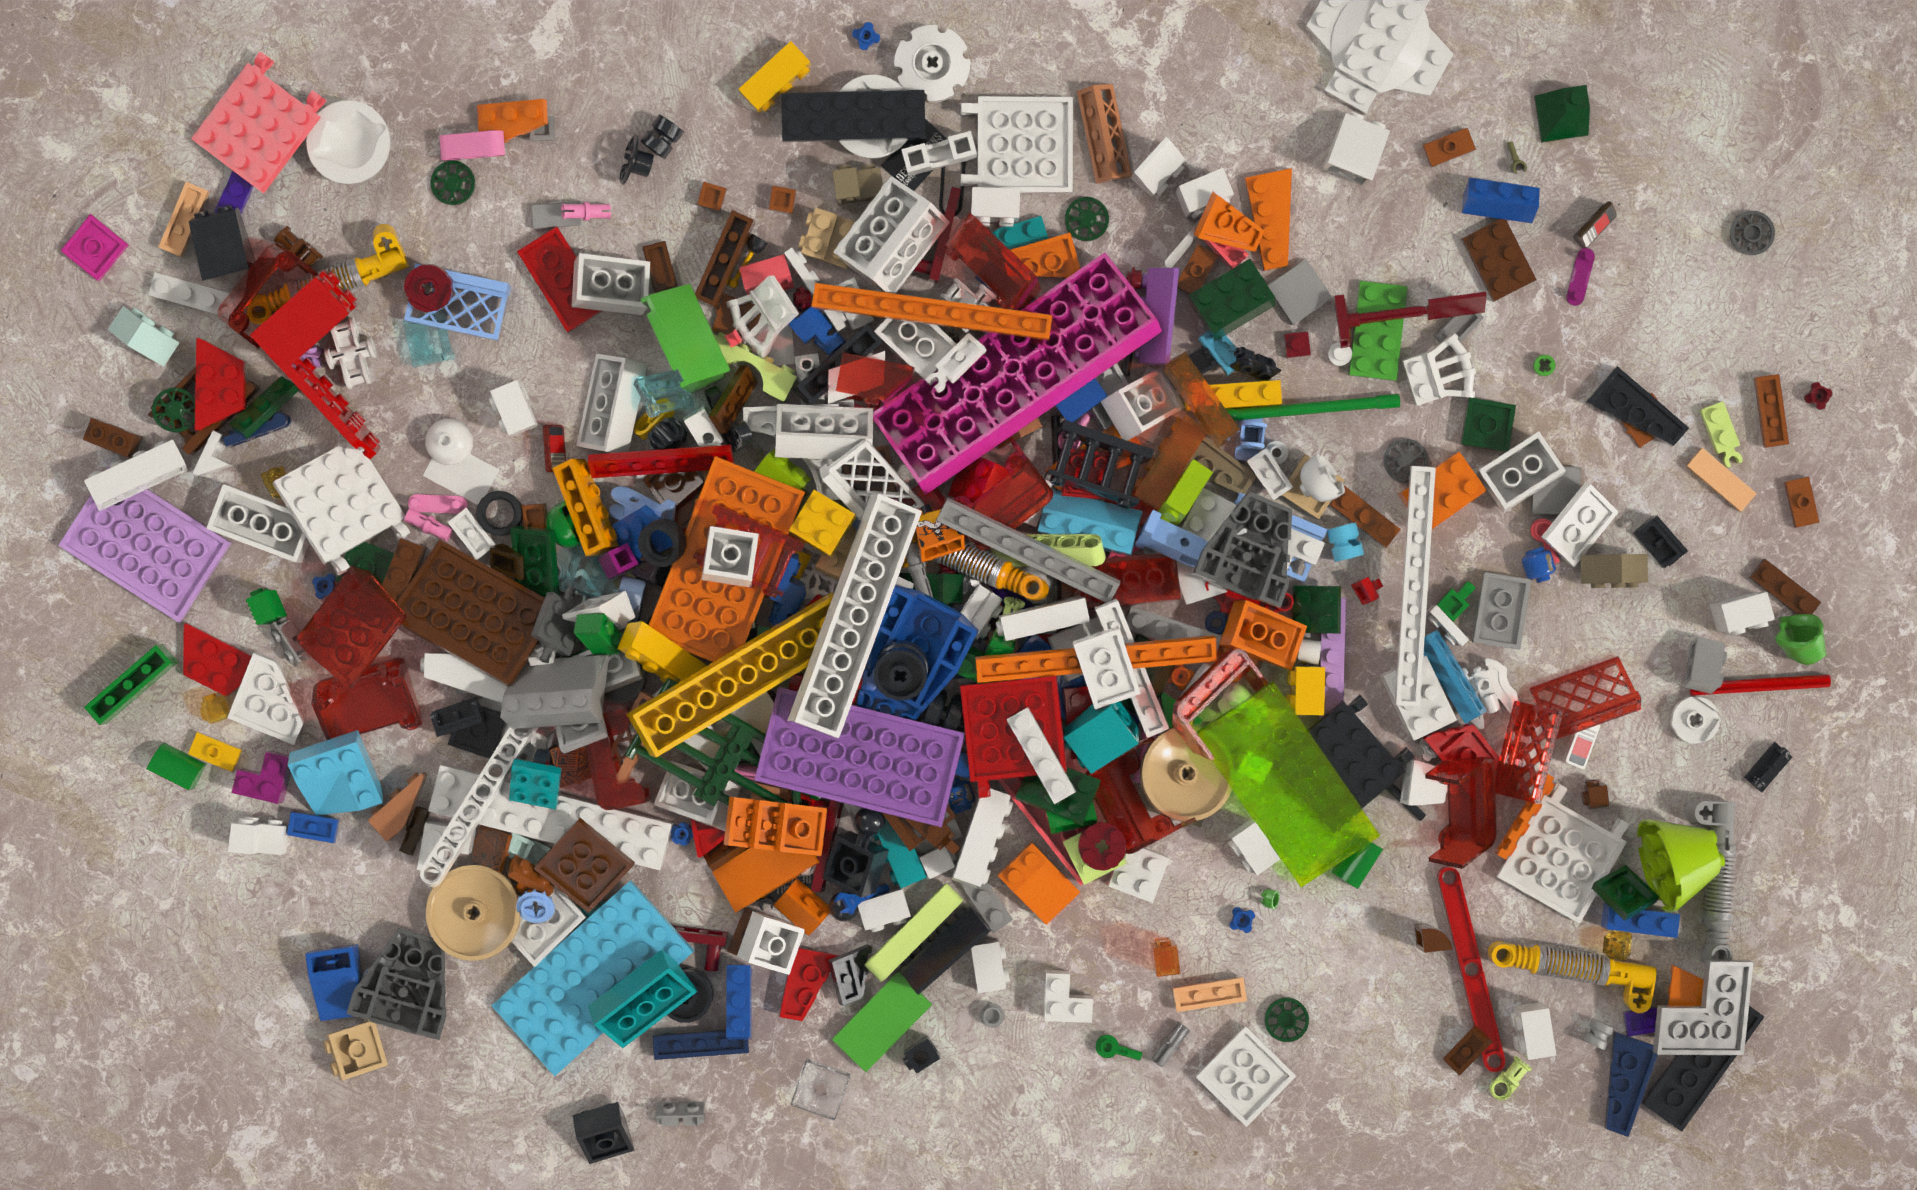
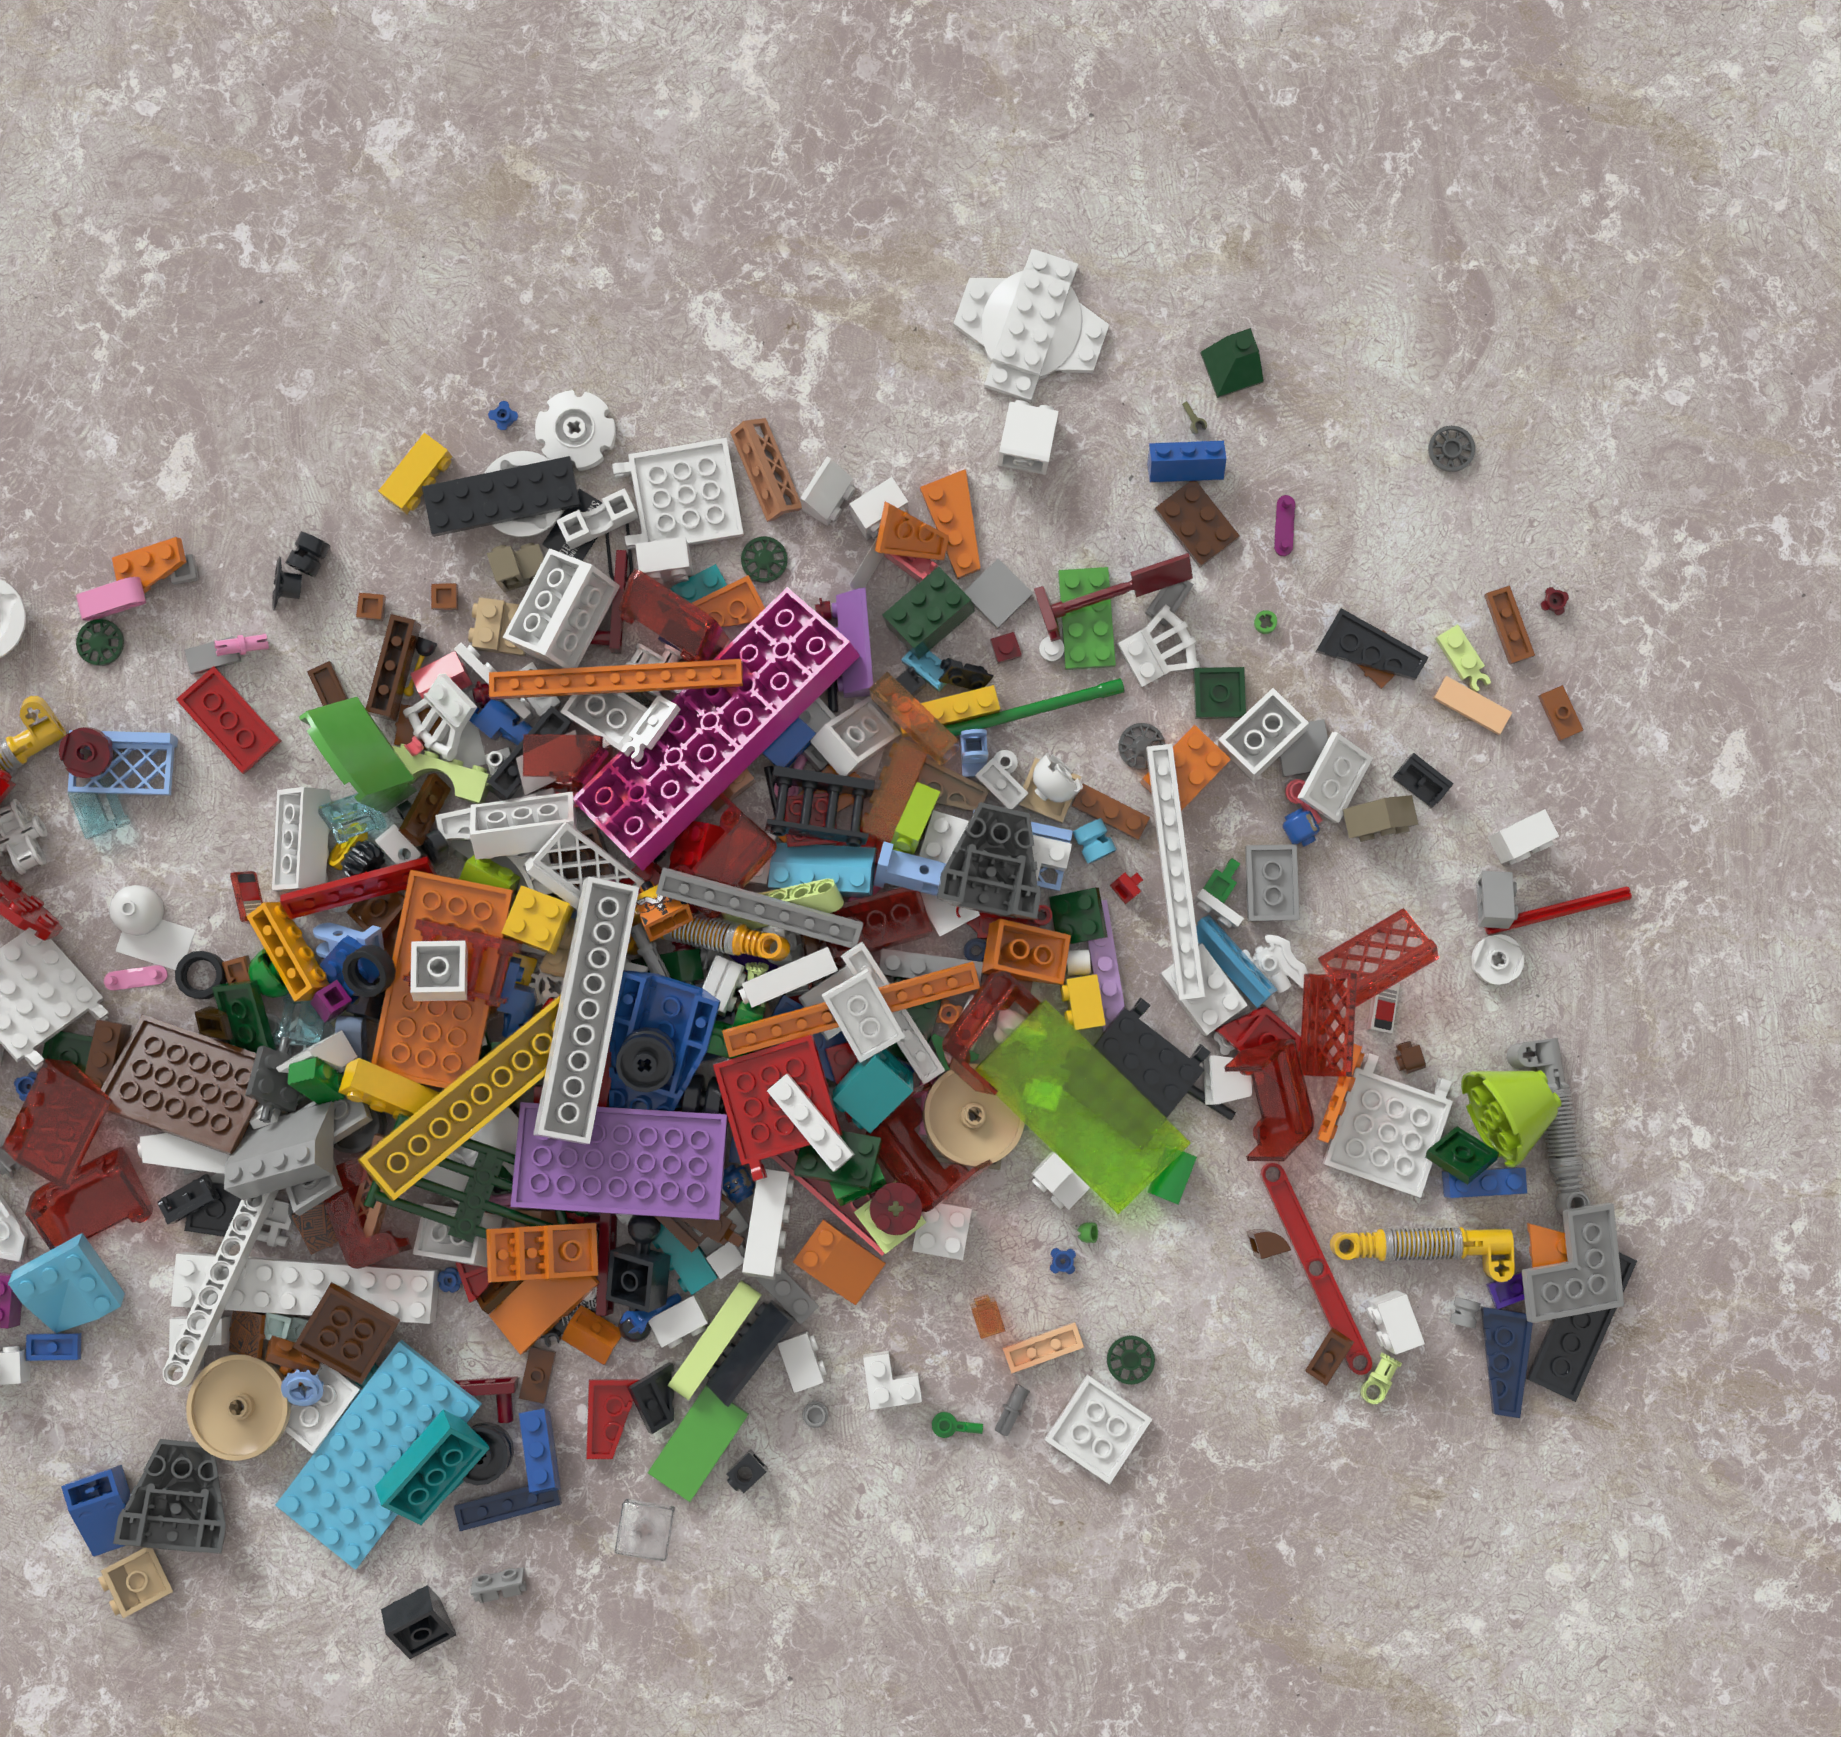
camera: 15 degrees left, 5 degrees down
(396, 814) = (142, 1312): nougat slope -> none
(414, 830) = (161, 1329): dark brown pin -> none
(428, 524) = (128, 1001): bright pink pin -> none
(471, 533) = (174, 1001): white plate -> none
(514, 408) = (195, 860): white brick -> none
(535, 781) = (278, 1251): teal plate -> none
(610, 284) = (272, 713): white brick -> none
(770, 943) = (562, 1380): white brick -> none
(1196, 270) = (886, 589): dark orange plate -> none
(1449, 147) = (1123, 419): dark orange plate -> none
(1595, 225) = (1289, 469): slope -> none
(1617, 945) = (1465, 1212): clear yellow plate -> none
(1768, 766) = (1584, 994): black hinge -> none
(1784, 588) = (1563, 806): reddish brown plate -> none
(1804, 639) = (1591, 853): bright green piece -> none

